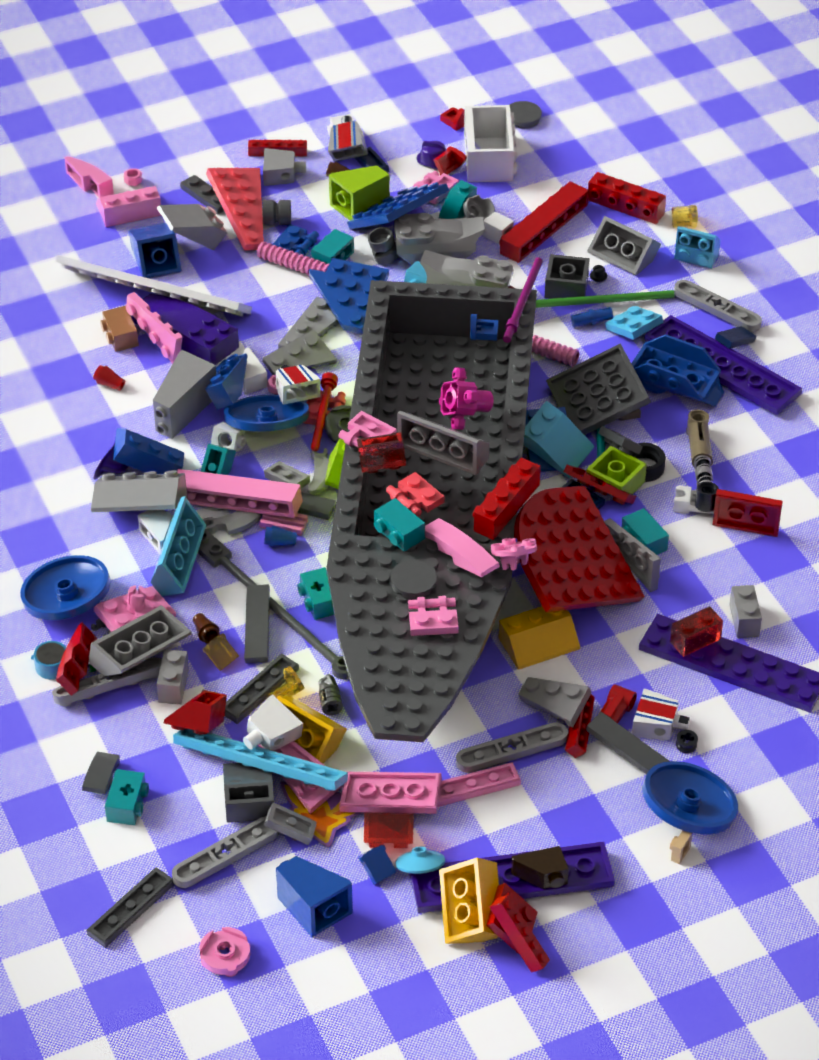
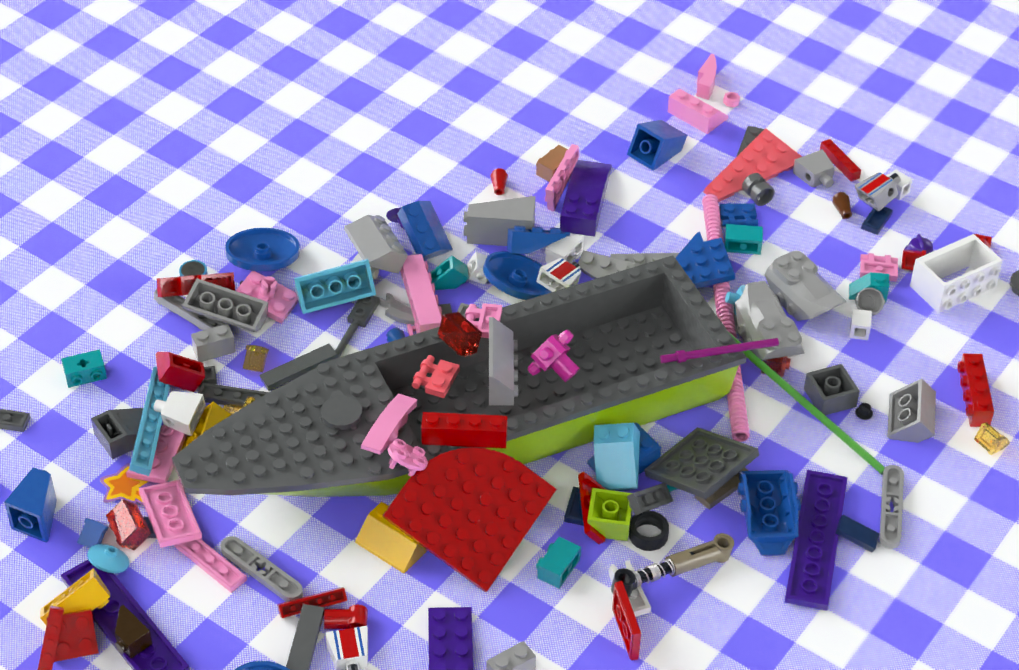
camera: 60 degrees right, 0 degrees up
(100, 772) = (106, 344): dark grey slope -> none
(153, 286) = (613, 160): white plate -> none
(194, 223) = (693, 146): light grey slope -> none
(205, 628) = (276, 341): reddish brown cone -> none
(213, 860) = (74, 449): light grey piece -> none
(290, 823) = (102, 466): light grey plate -> none
(358, 189) = (821, 223): lime slope -> none
(383, 245) = (765, 258): dark grey wheel -> none
(397, 206) = (813, 247): blue plate -> none
(399, 524) = (390, 378): teal brick -> none
(433, 622) = (303, 444): bright pink plate -> none
(483, 329) = (661, 338): blue tile -> none
(544, 222) = (896, 349): red brick -> none
(556, 697) = (324, 575): light grey wing -> none
(592, 317) = (803, 427): blue pin -> none
(634, 322) = (817, 456): medium azure plate -> none
(640, 559) = (522, 566): light grey wing -> none
(696, 247) = (952, 460): medium azure slope -> none
(696, 631) = (452, 635): clear red brick -> none

